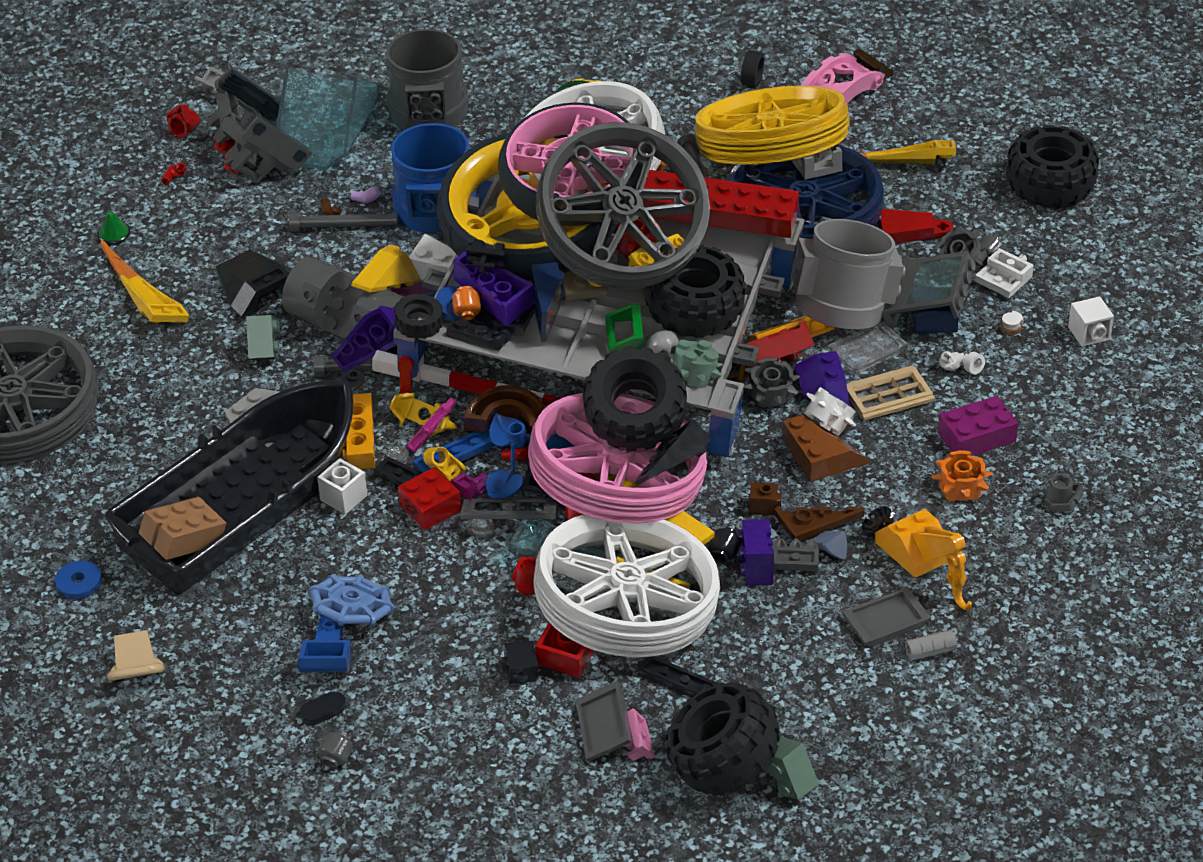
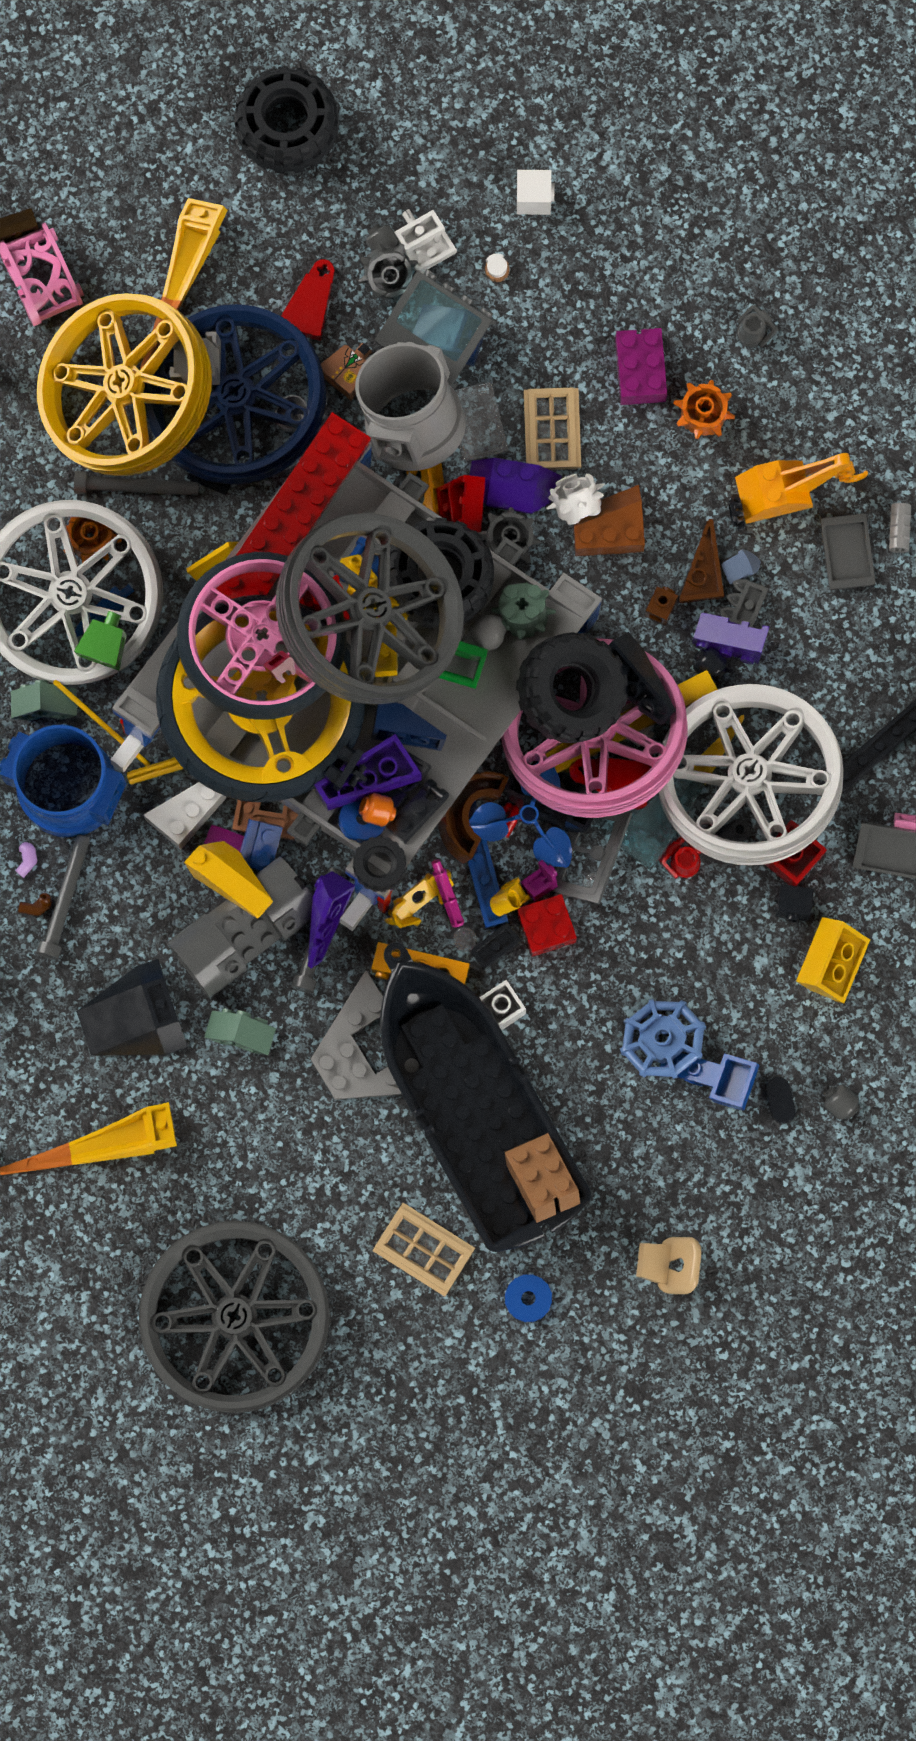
camera: 70 degrees left, 35 degrees up
(102, 492) = (423, 1249): none -> tan piece
(475, 708) = (833, 959): none -> yellow slope
(539, 160) = (279, 664): none -> dark red tile
(972, 362) = (533, 348): white arm -> none

